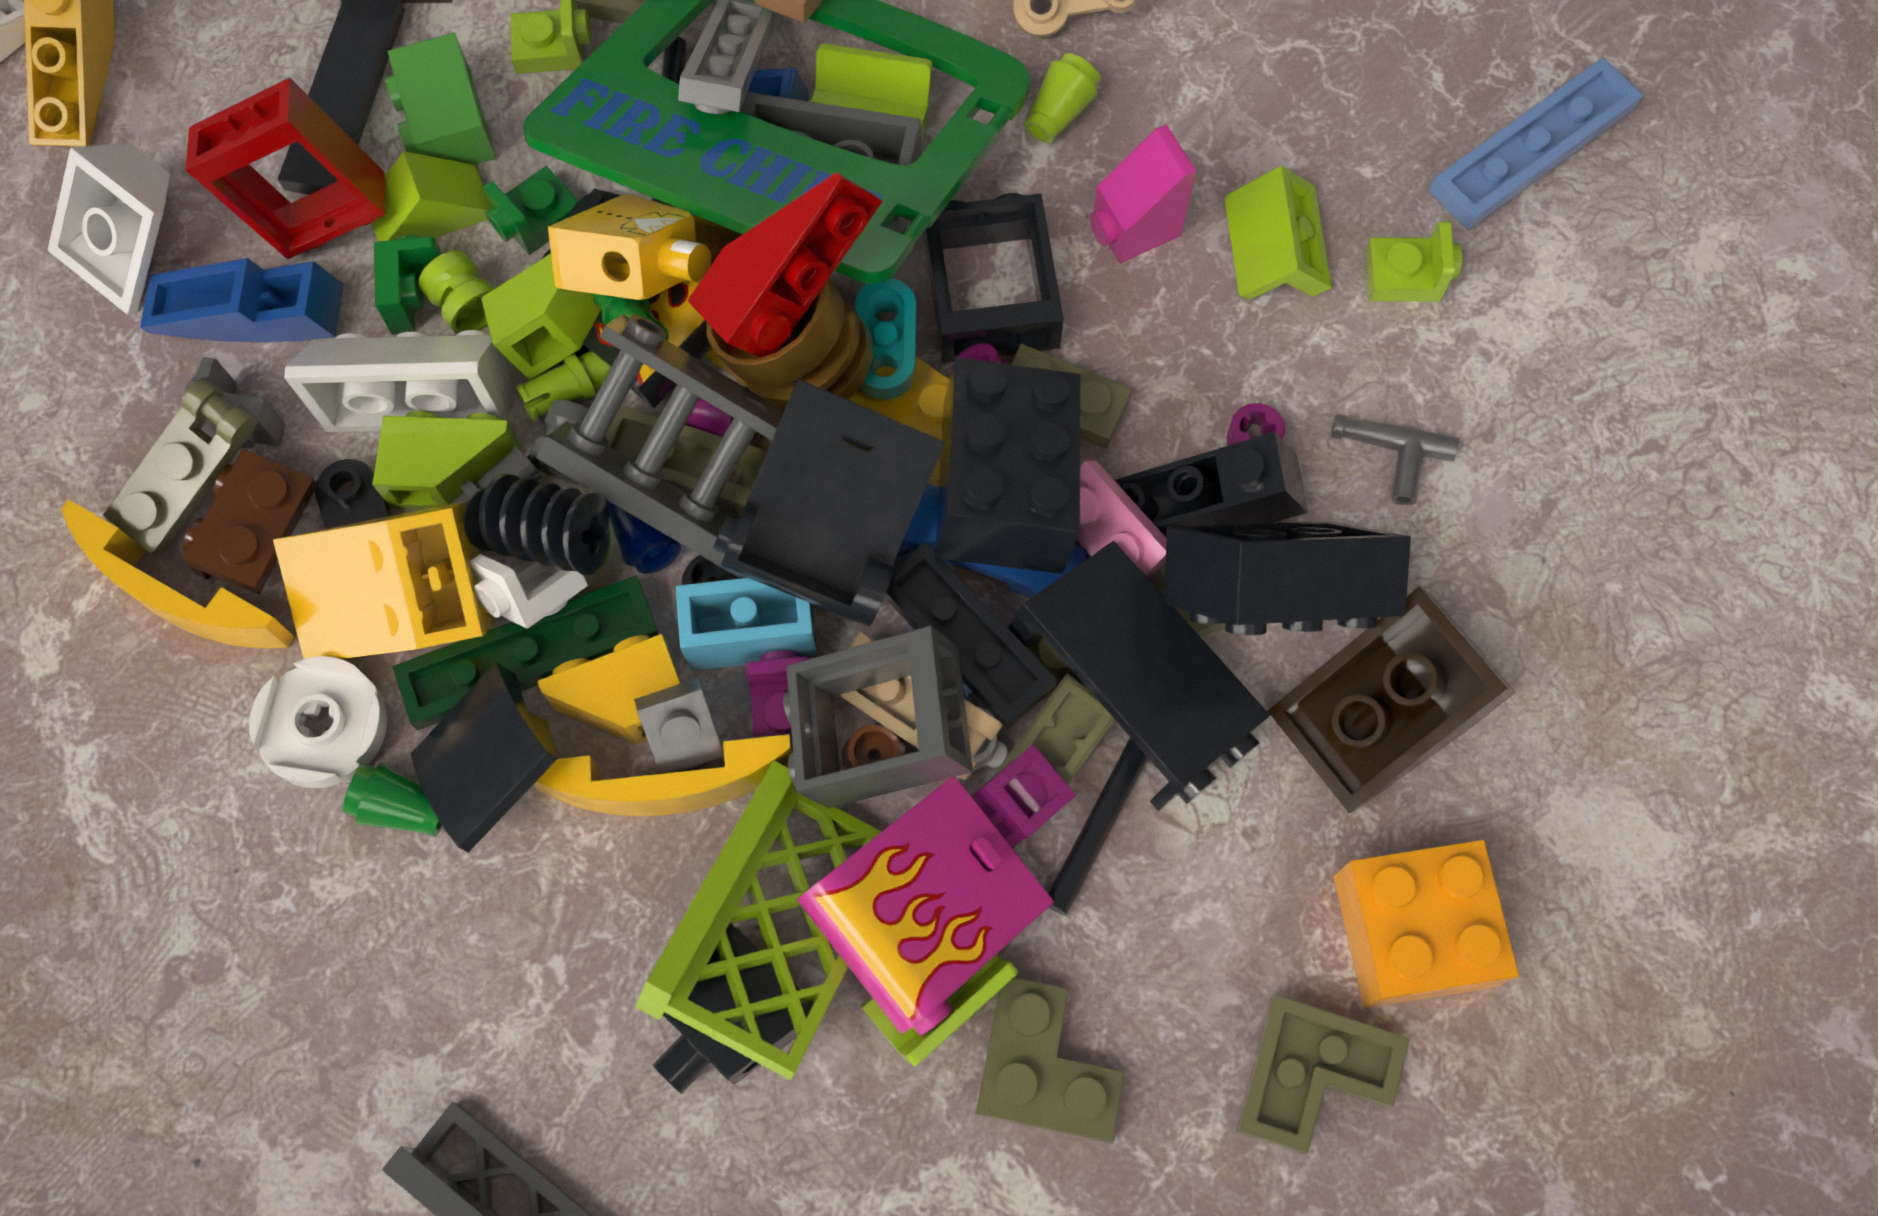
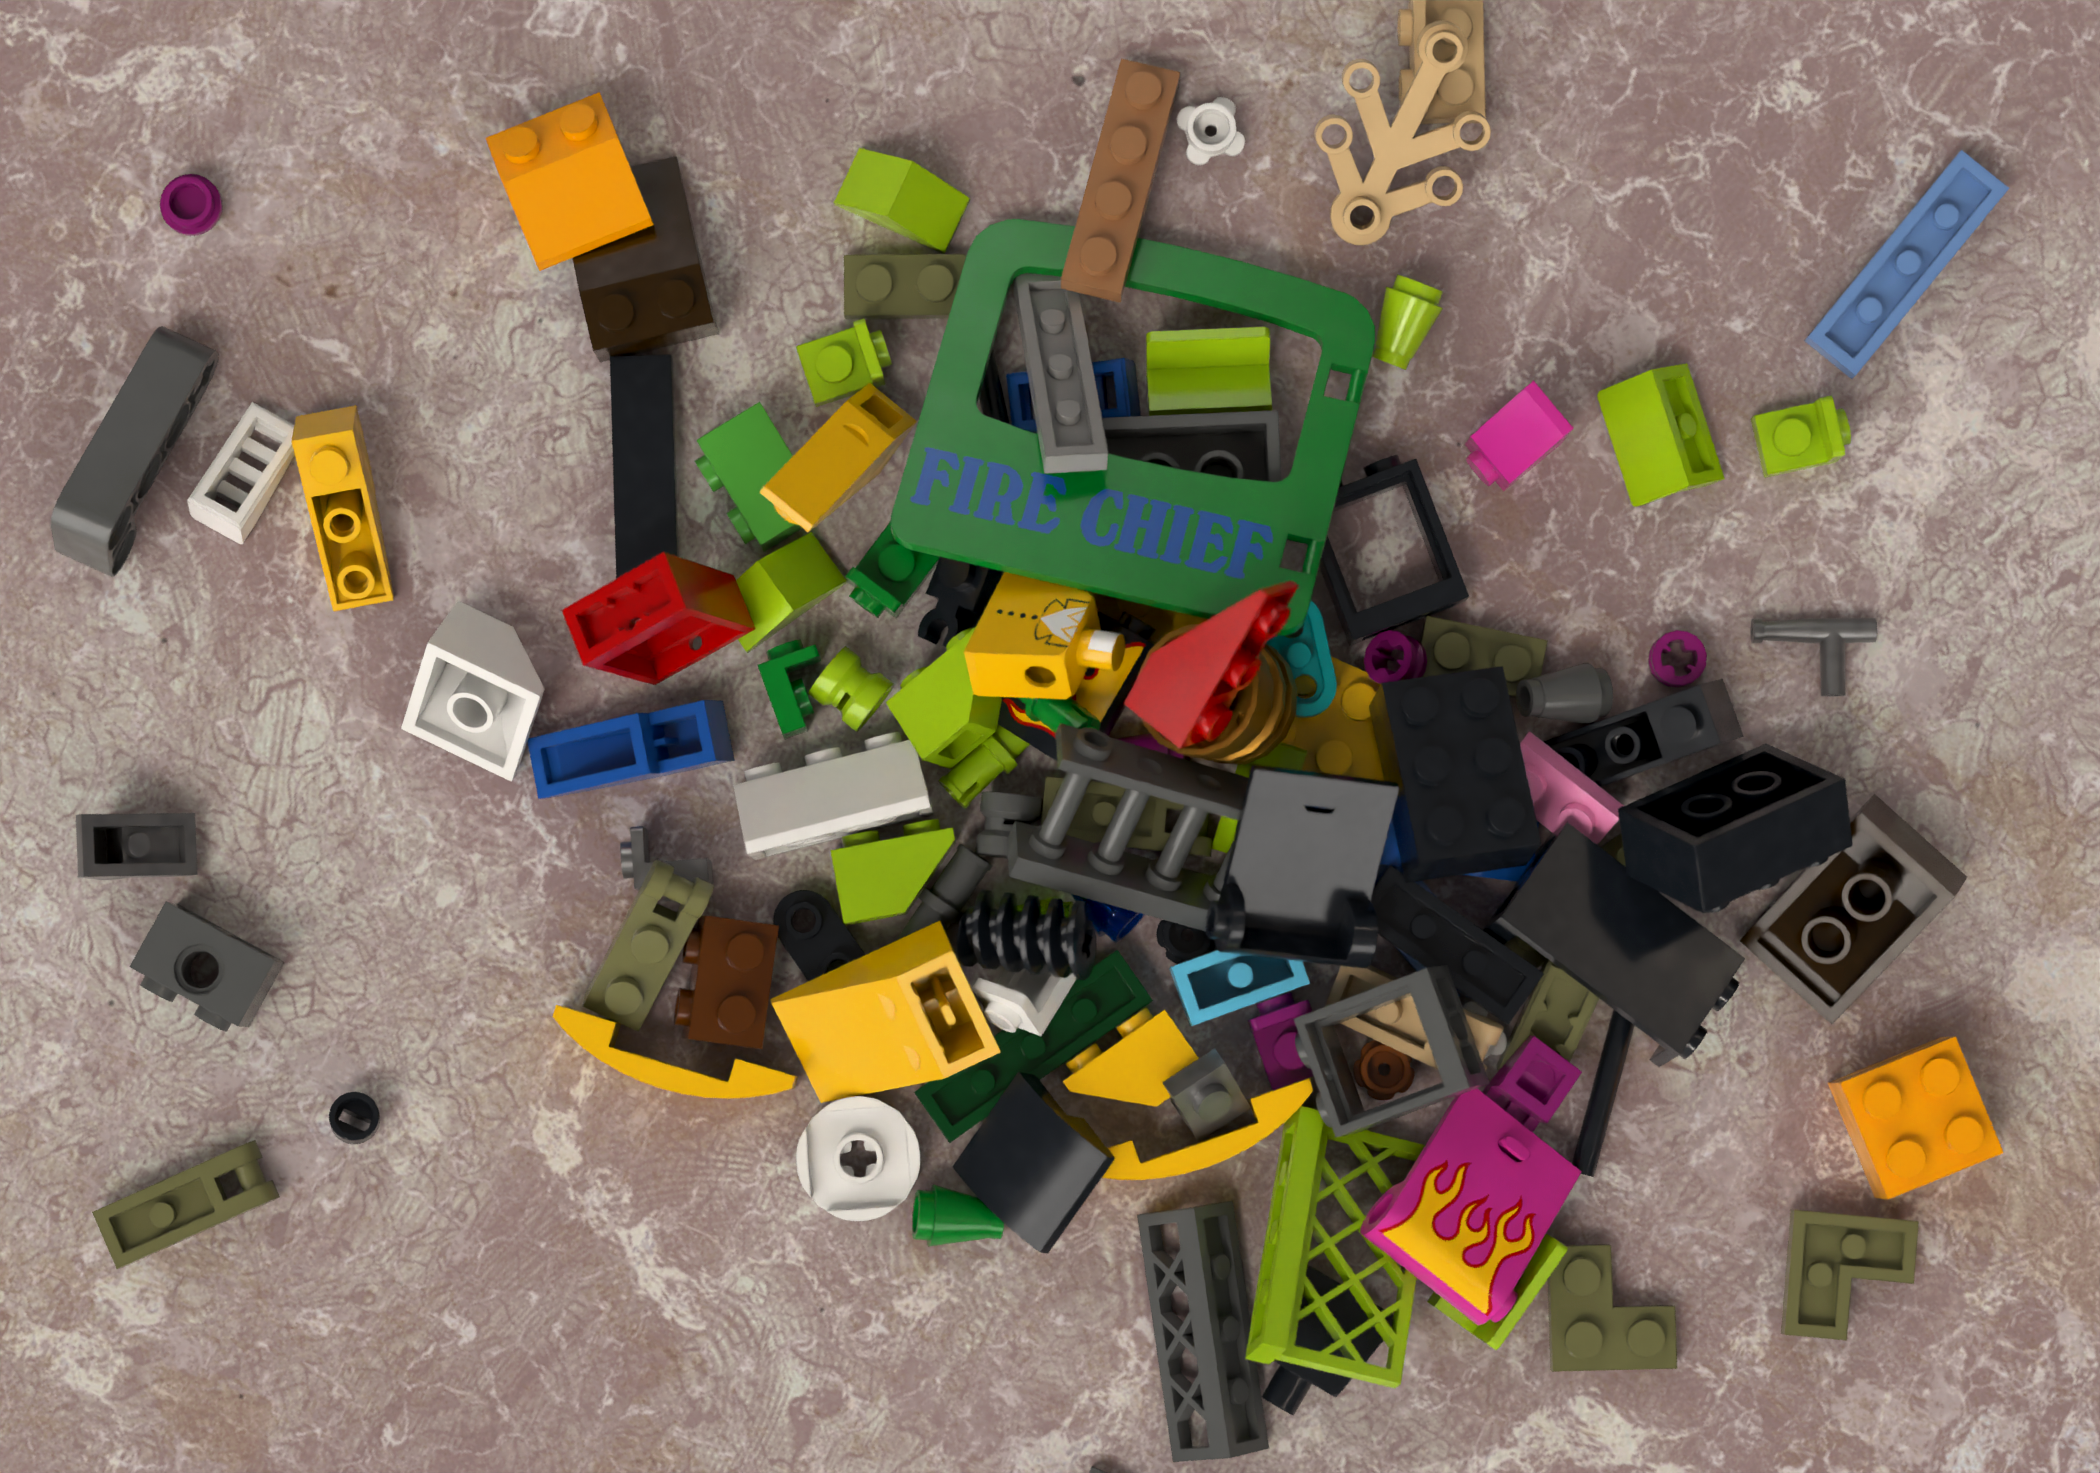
camera: 15 degrees left, 15 degrees up
(493, 75) = (839, 458): none -> yellow slope
(619, 1040) = (1214, 1332): none -> dark grey fence
(1139, 435) = (1567, 694): none -> dark grey cone

